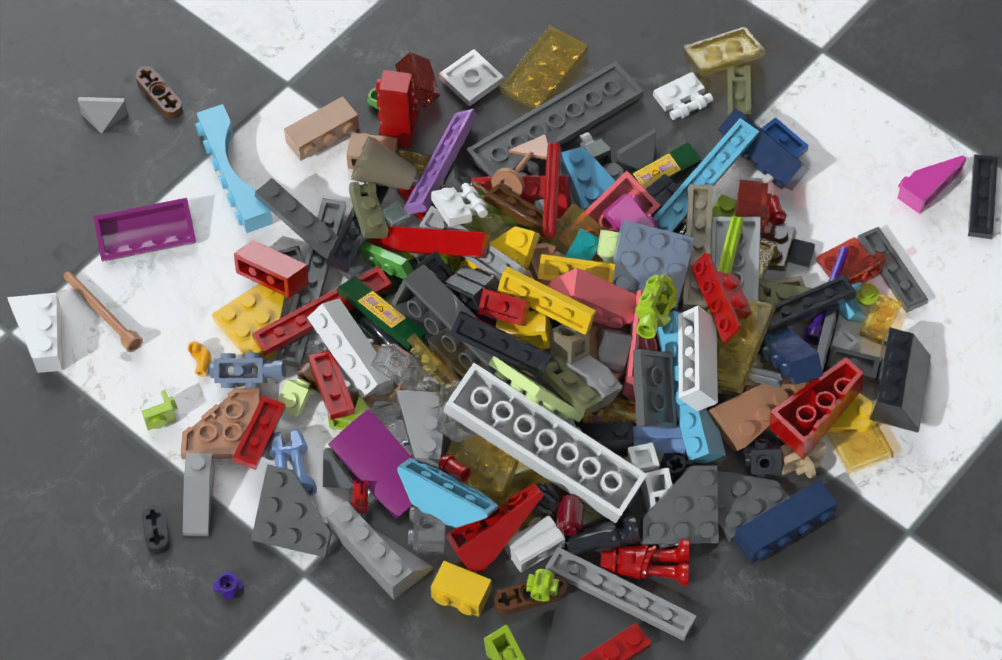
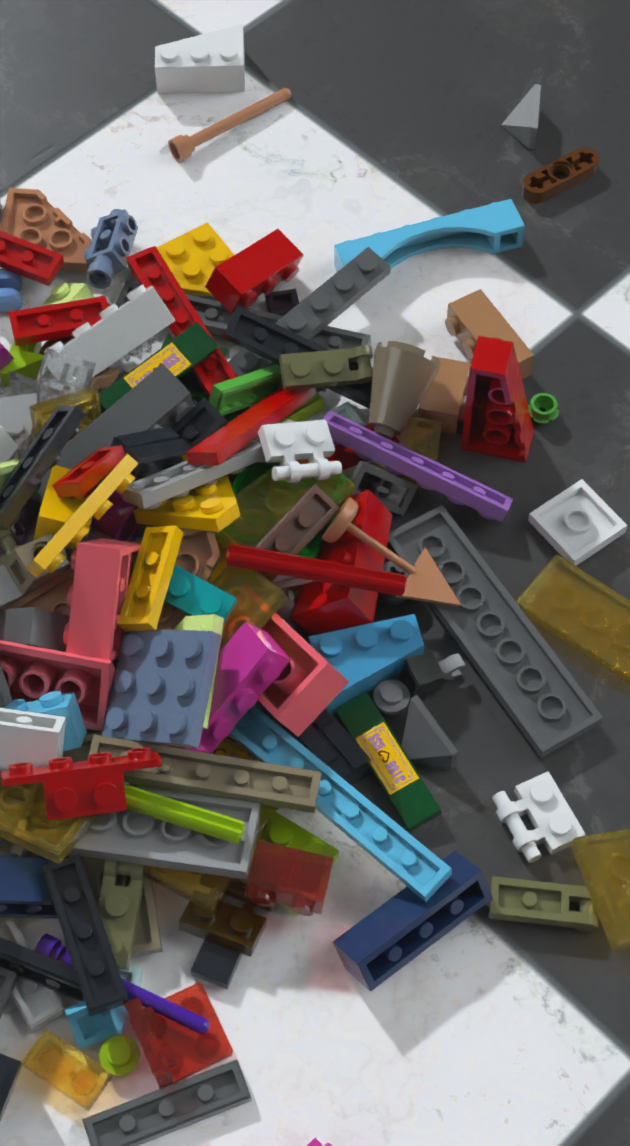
camera: 95 degrees right, 0 degrees up
(144, 229) = (341, 161): magenta slope -> none
(161, 414) = (76, 178): lime bracket -> none
(201, 355) = (152, 214): light orange arm -> none
(423, 78) = (566, 449): clear red brick -> none
(655, 305) = (72, 675): lime brick -> none
(777, 215) = (299, 930): red pin -> none
(786, 137) = (439, 963): blue plate -> none

